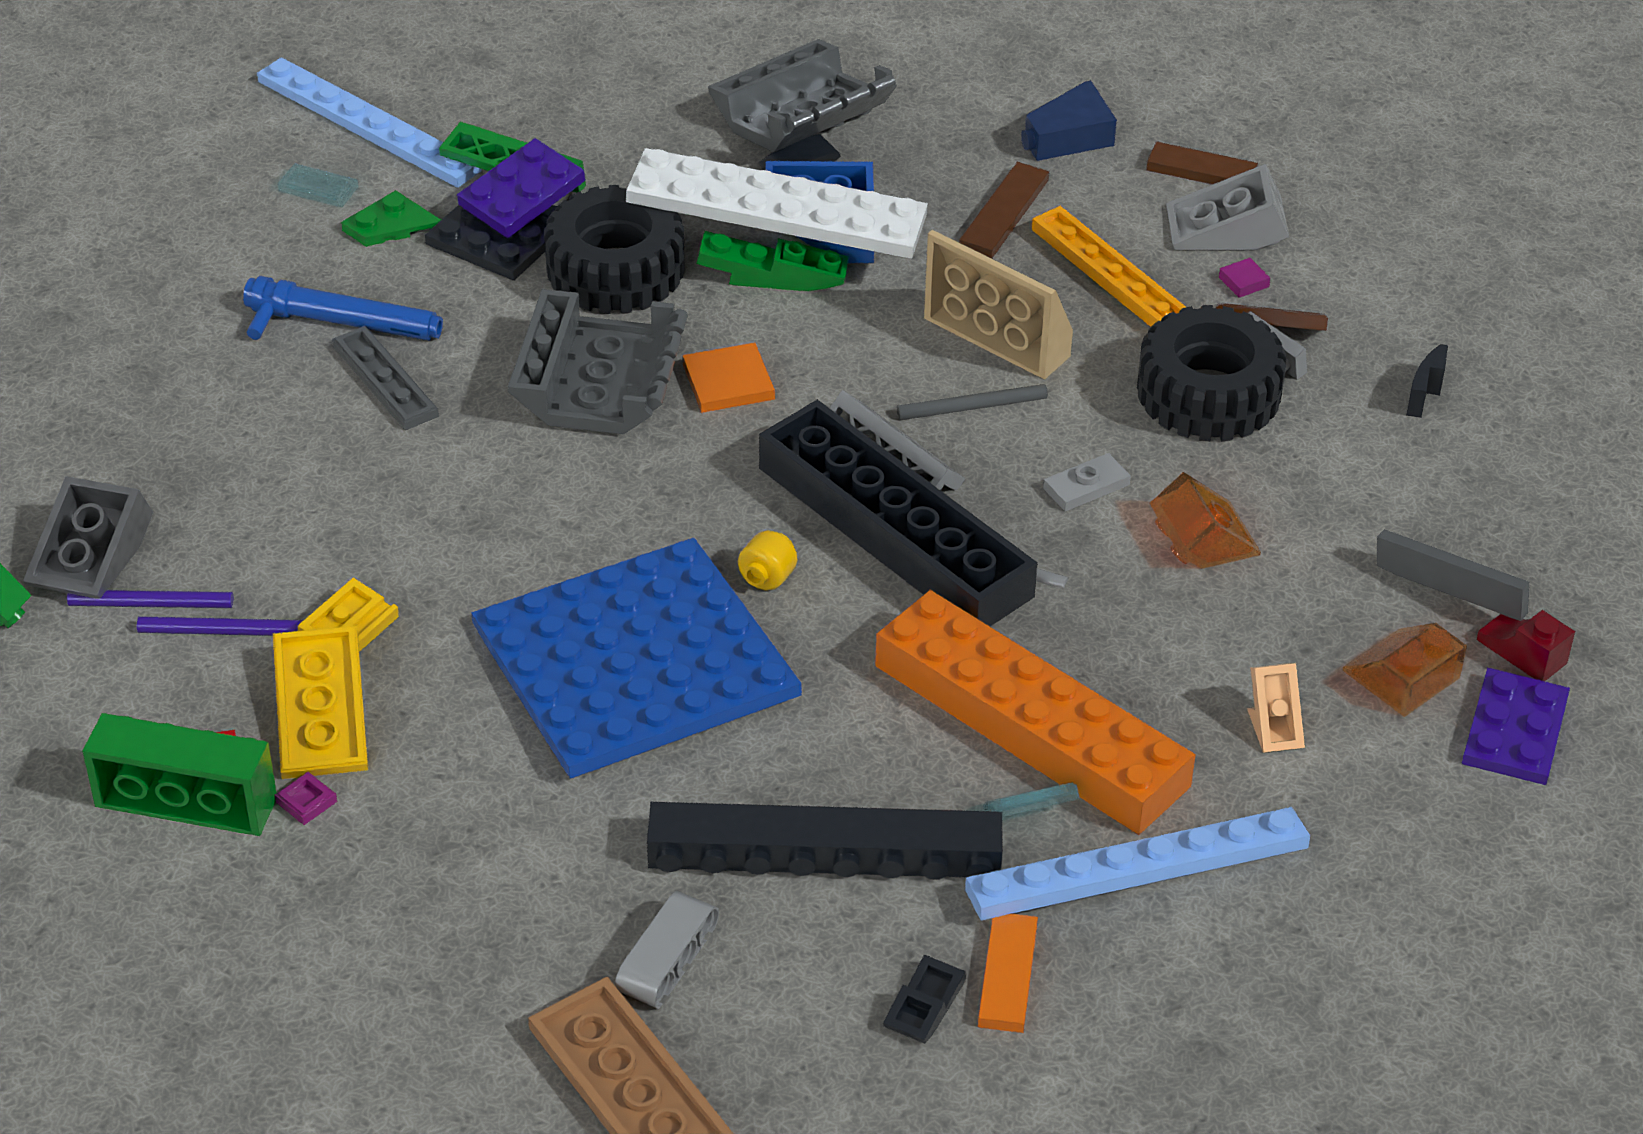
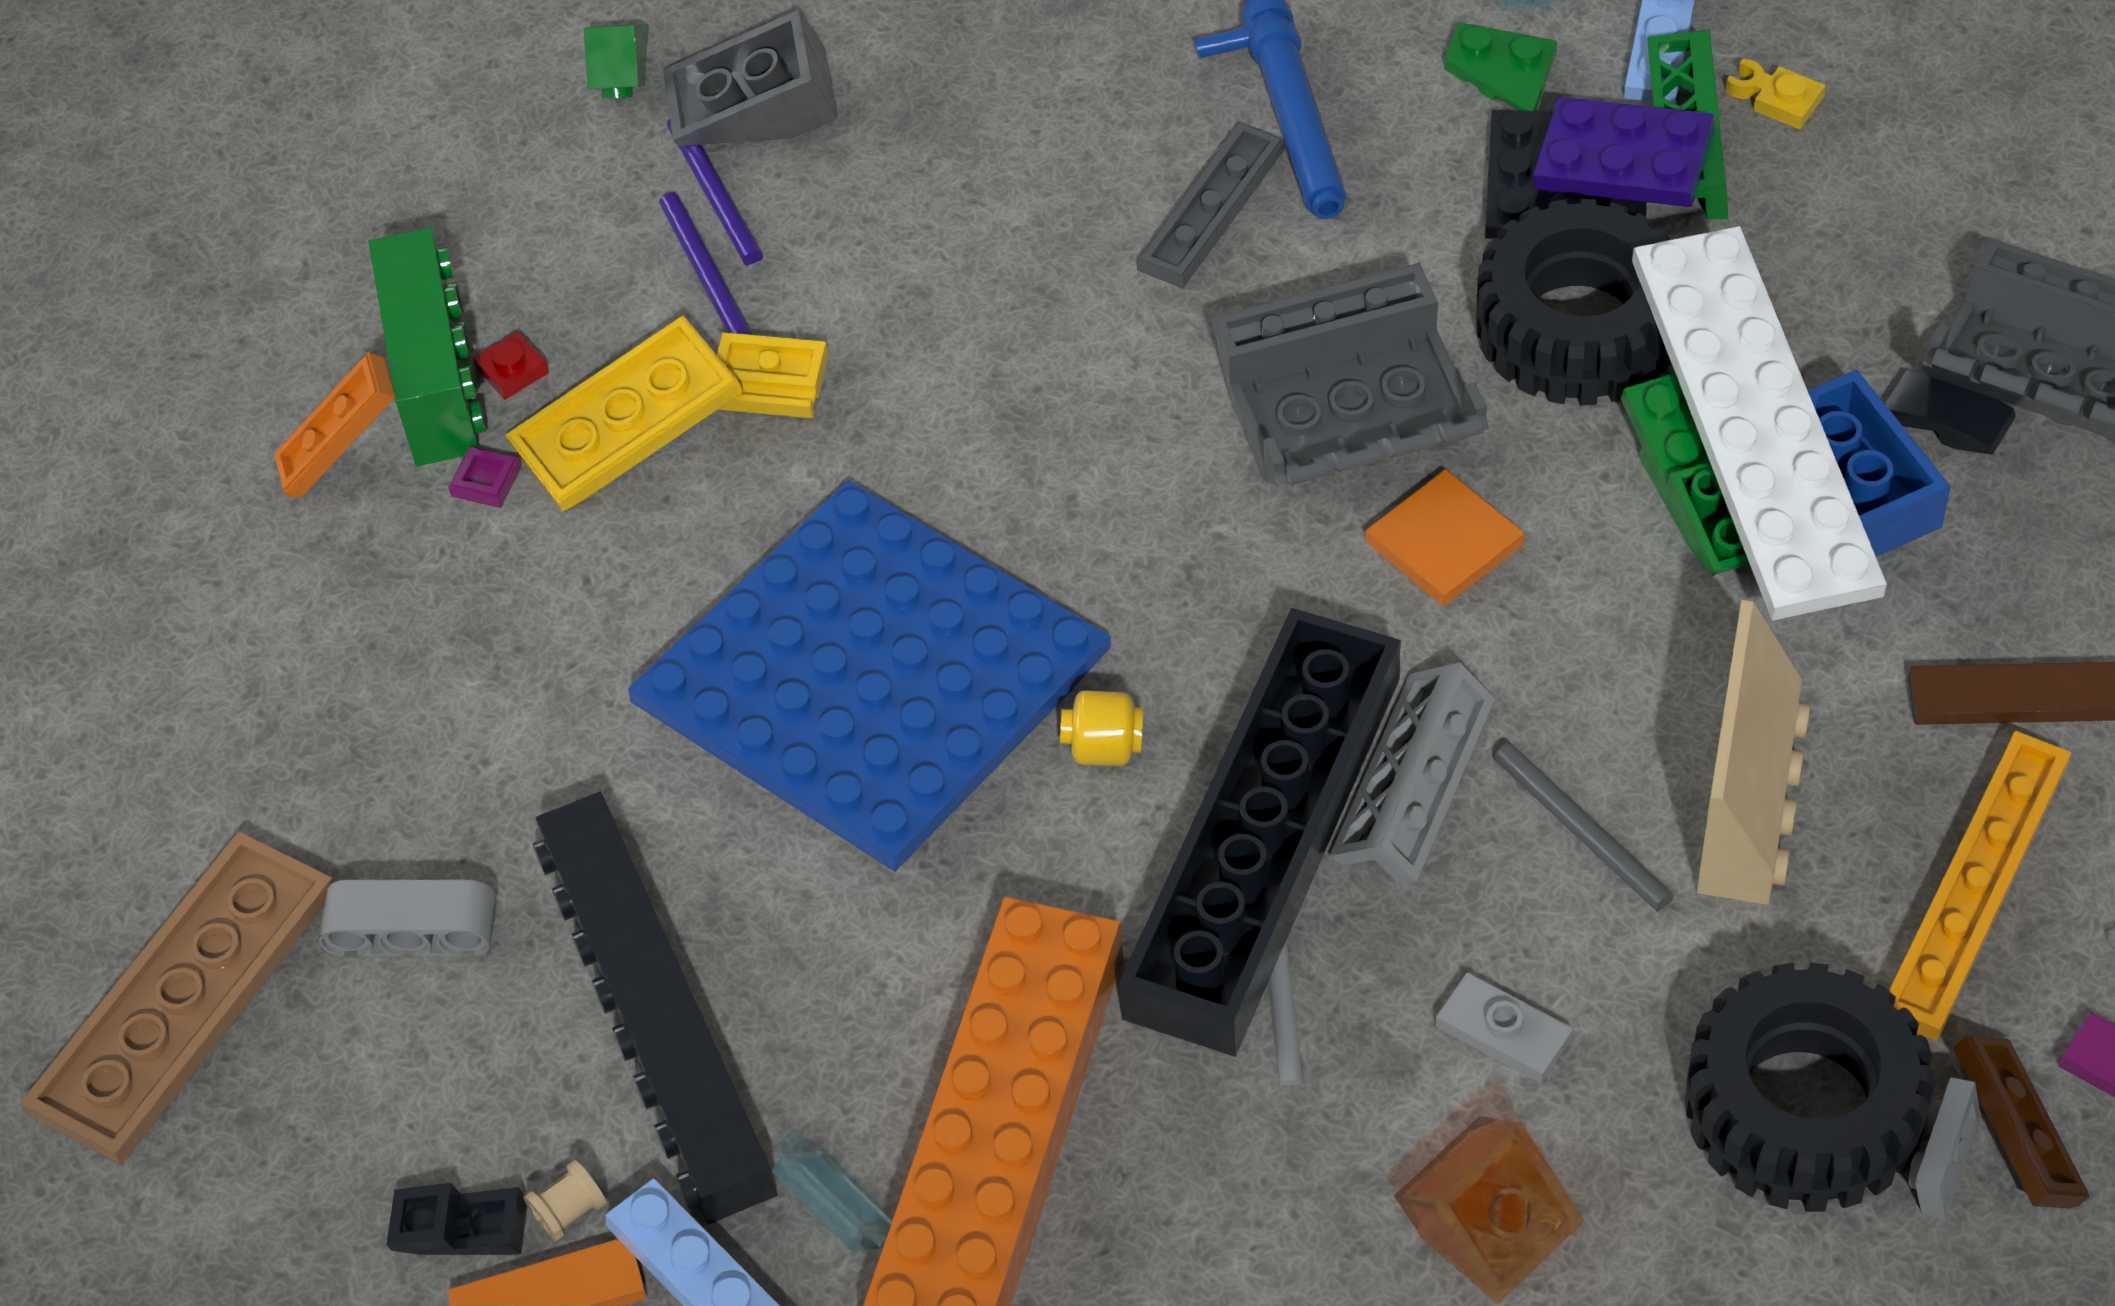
camera: 70 degrees right, 10 degrees up
(215, 843) = (334, 425): none -> orange tile
(518, 125) = (1779, 96): none -> yellow plate
(948, 933) = (565, 1200): none -> tan bush

